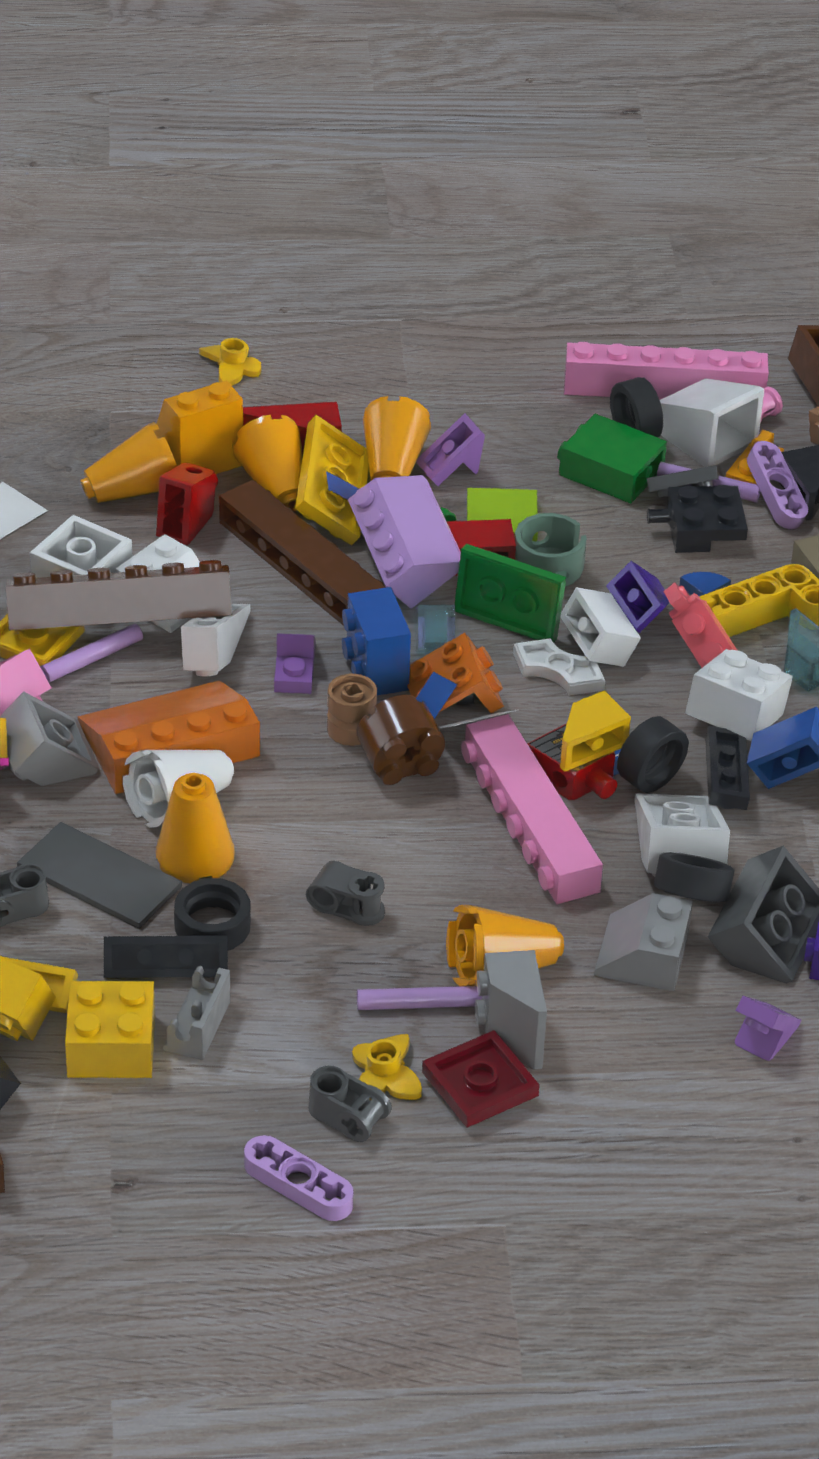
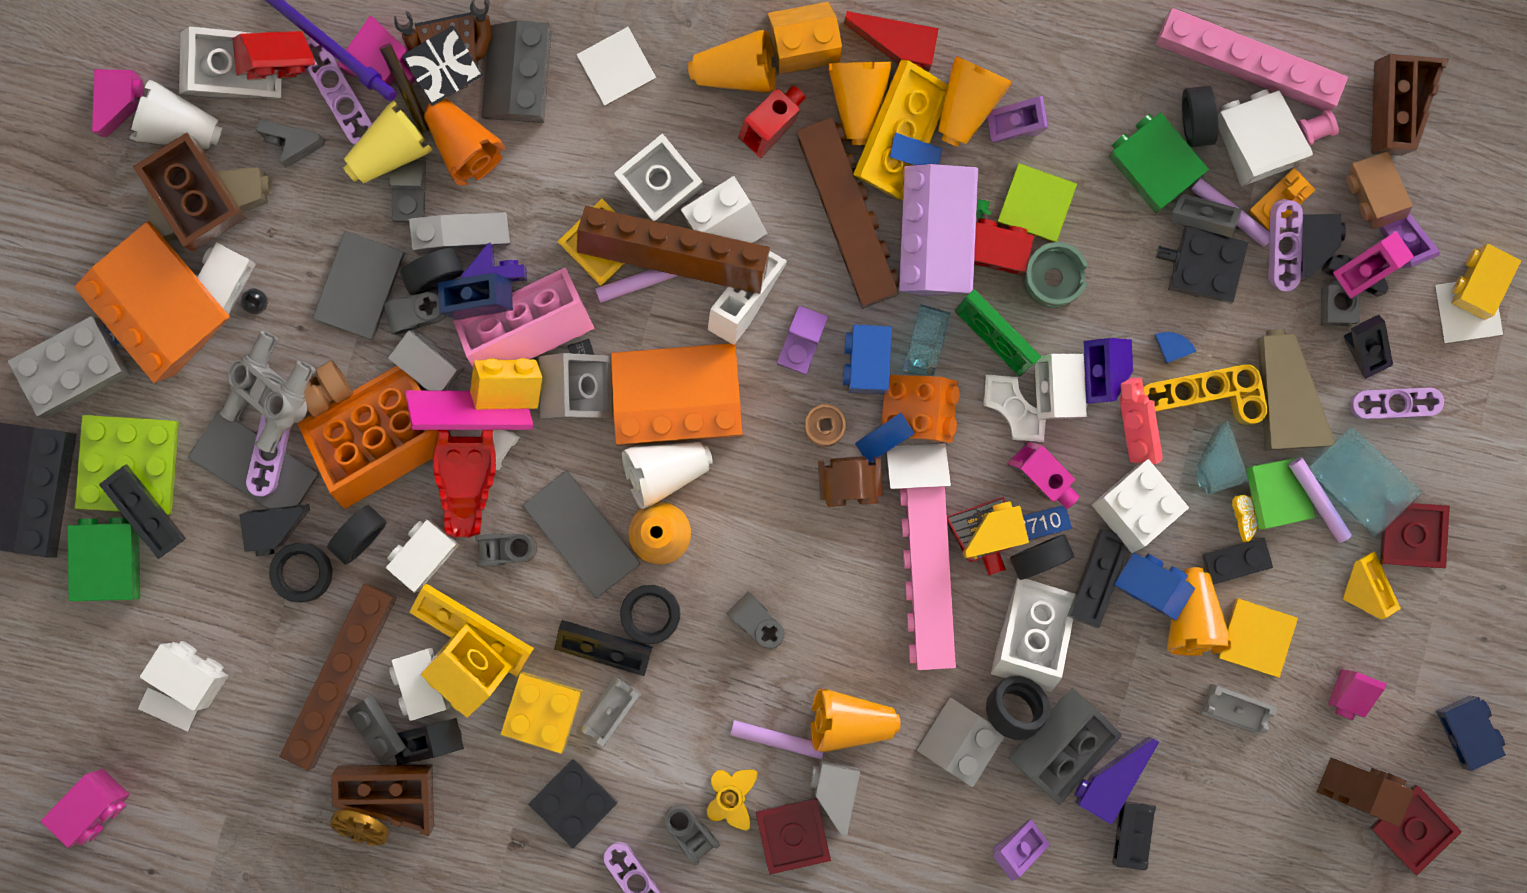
camera: 20 degrees right, 45 degrees up
(183, 1120) = (573, 803): none -> black plate
(624, 682) = (1036, 466): none -> dark pink torso

